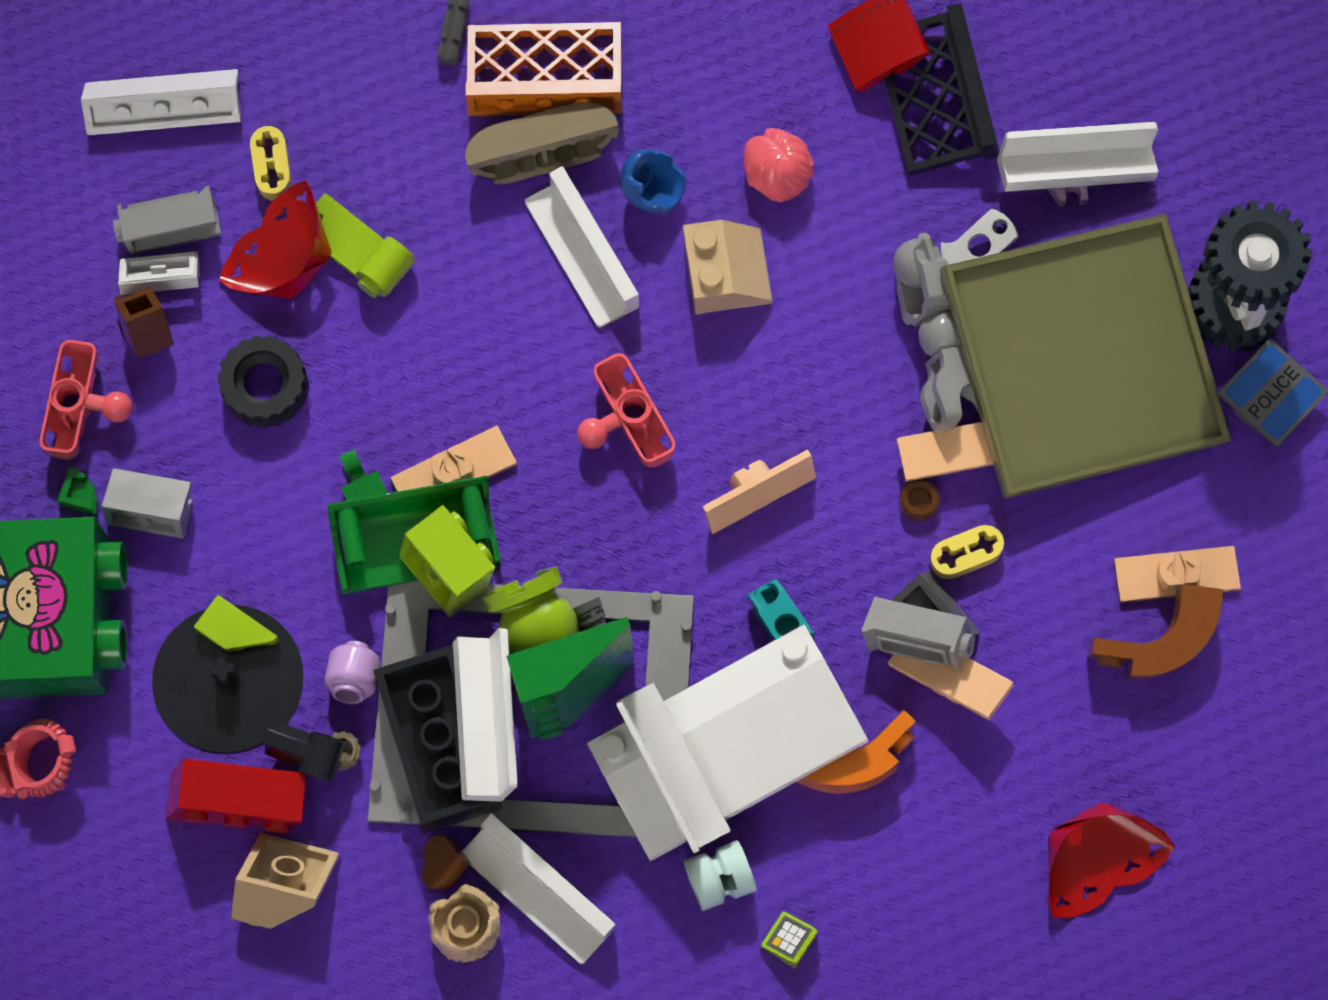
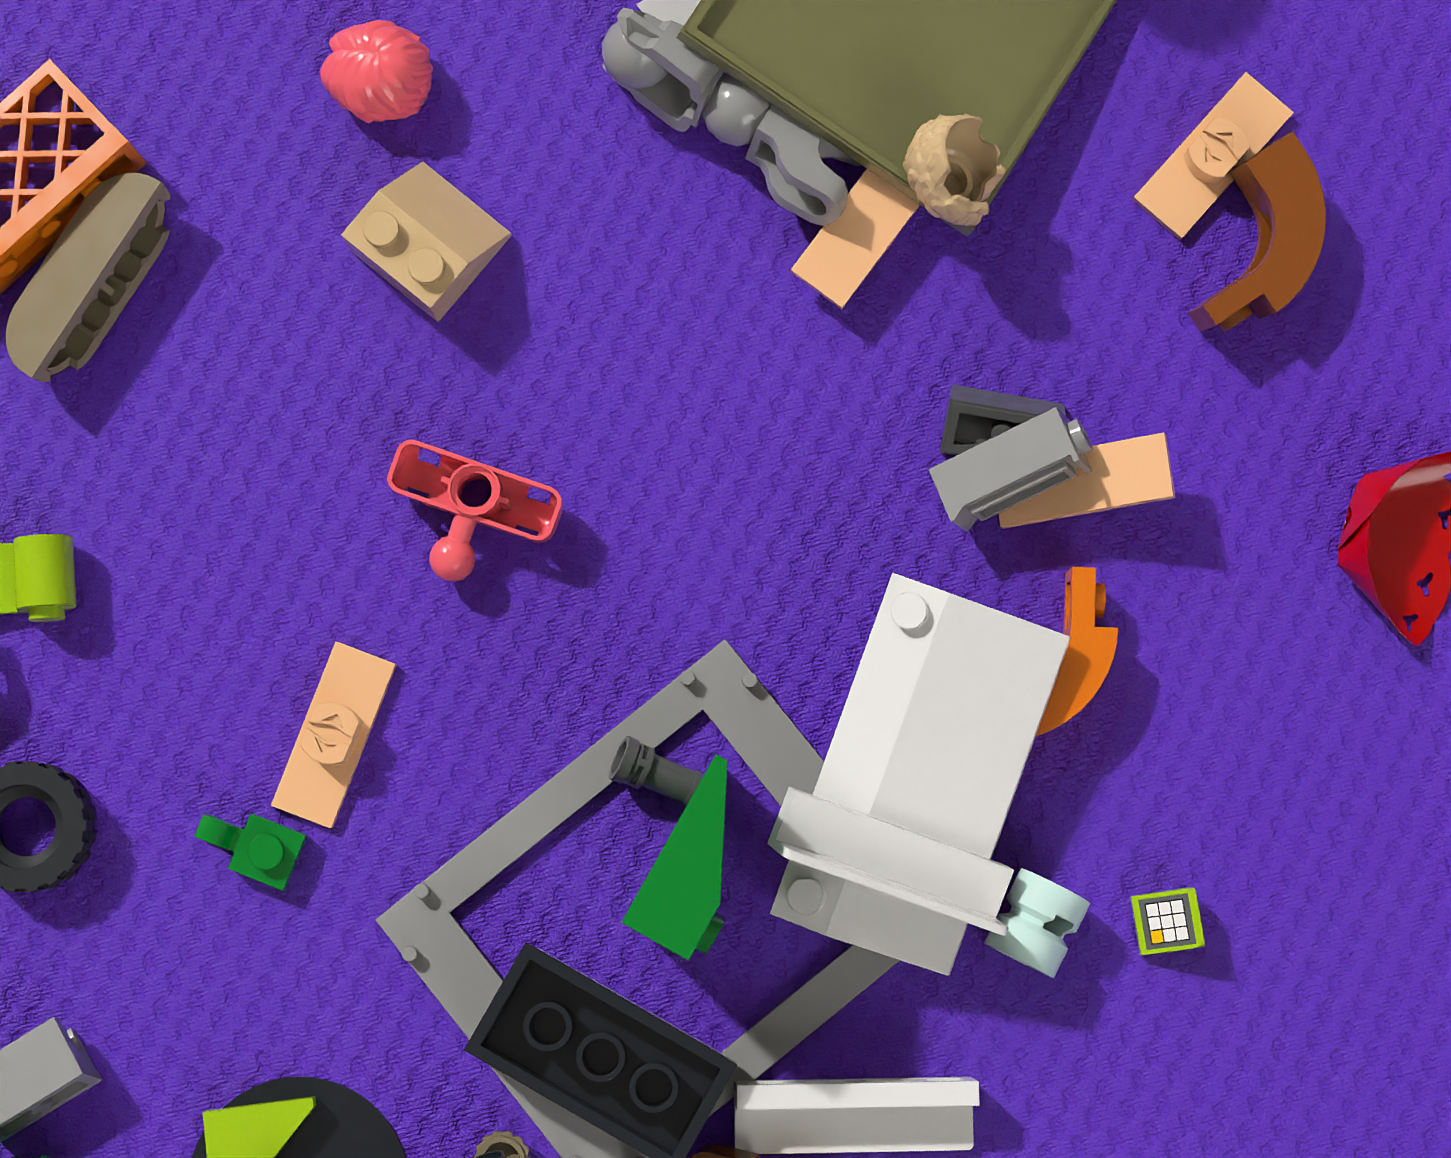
camera: 45 degrees left, 10 degrees up
(351, 672) = (433, 1063): lavender head -> none
(371, 529) = (361, 852): green piece -> none
(447, 560) = (429, 849): lime brick -> none
(485, 717) = (639, 992): white panel -> none
(533, 611) = (587, 827): lime tile -> none
(582, 250) = (247, 359): white panel -> none
(652, 181) = (256, 213): blue hair -> none
(758, 488) = (688, 459): light nougat piece -> none
(776, 610) = (839, 580): teal leg -> none
(919, 500) = (871, 316): reddish brown tile -> none
(963, 543) = (986, 335): light yellow beam -> none
(1022, 453) = (953, 168): none -> tan hair

